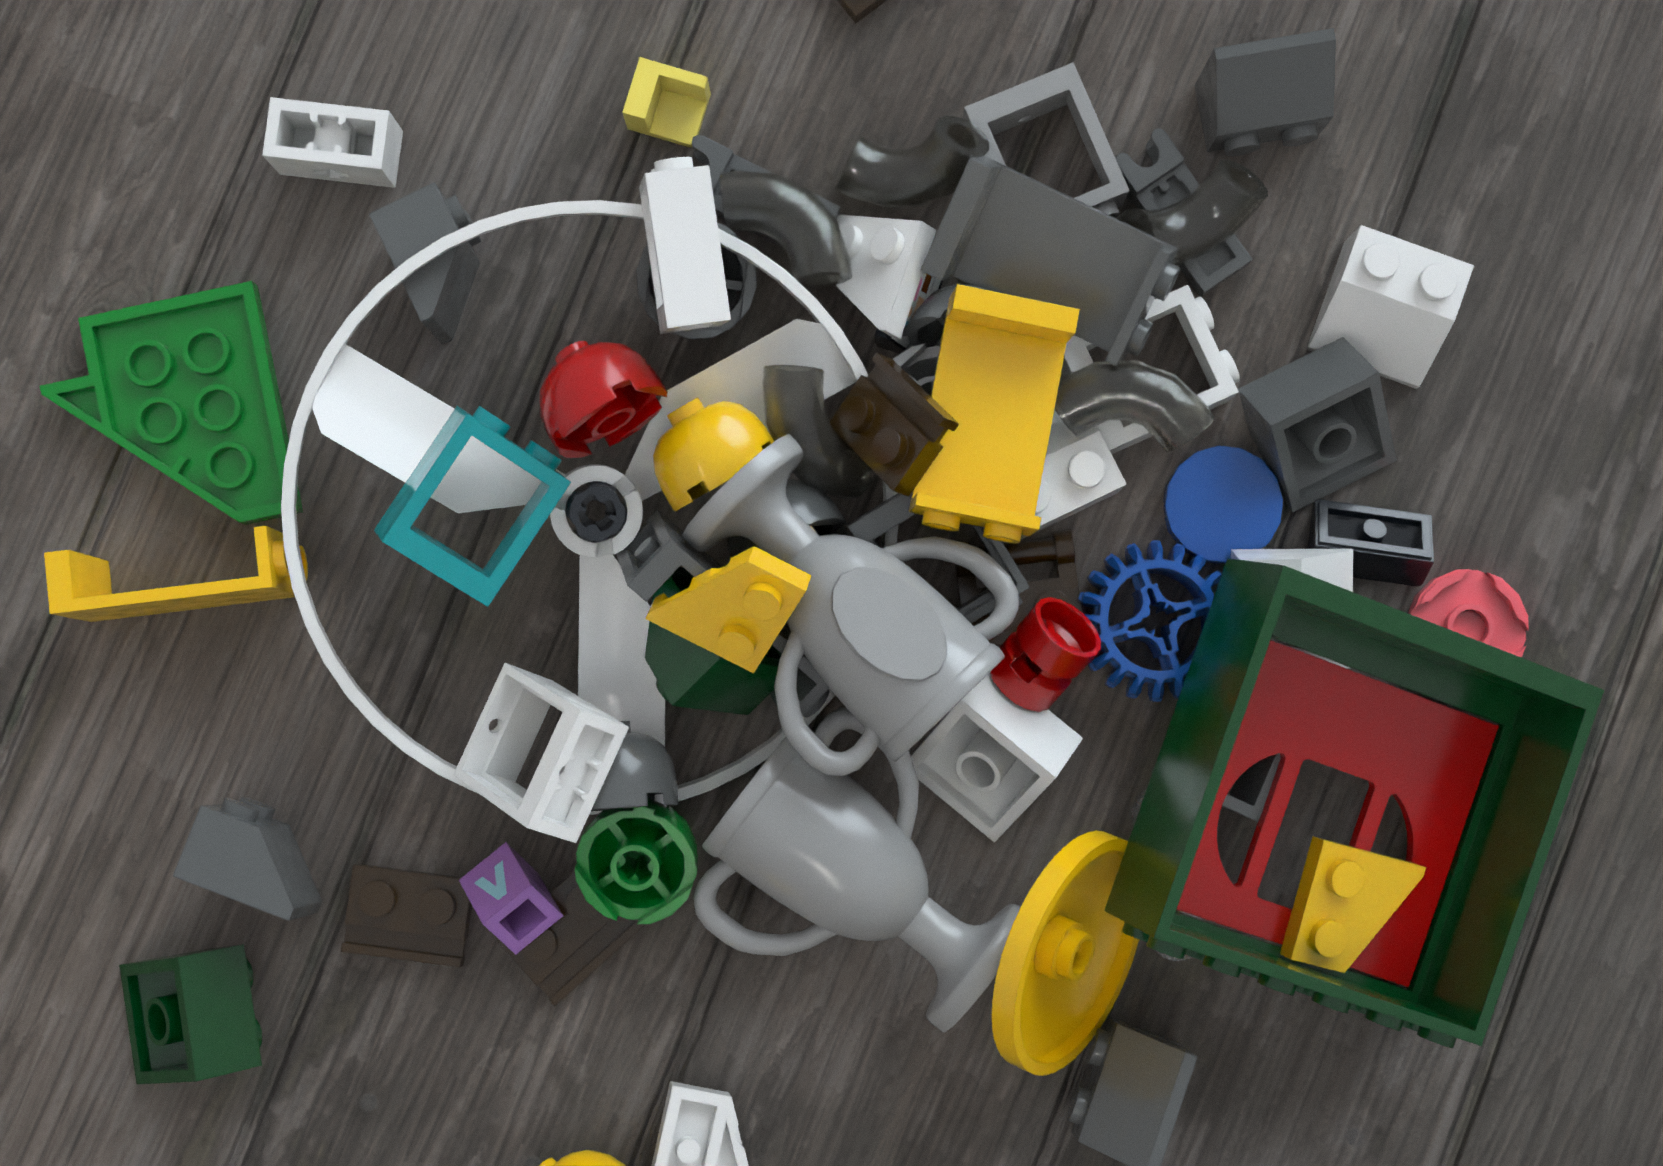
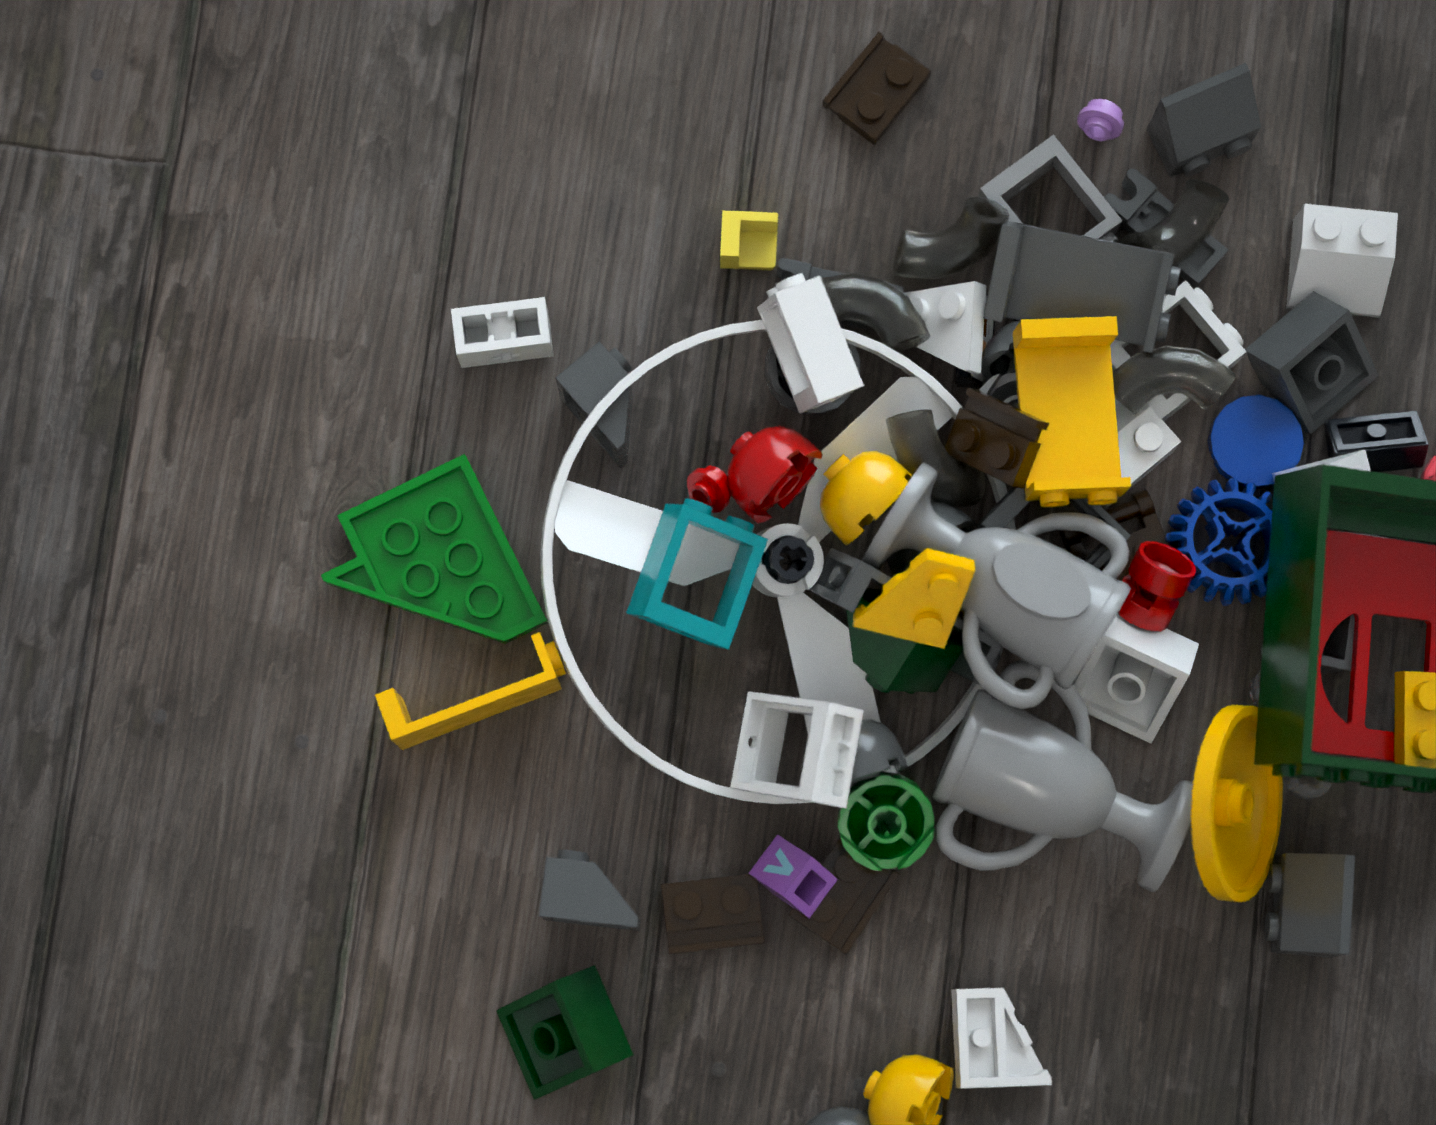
camera: 15 degrees left, 5 degrees down
(516, 400) = (709, 487): none -> red plate
(1140, 59) = (1101, 120): none -> lavender plate

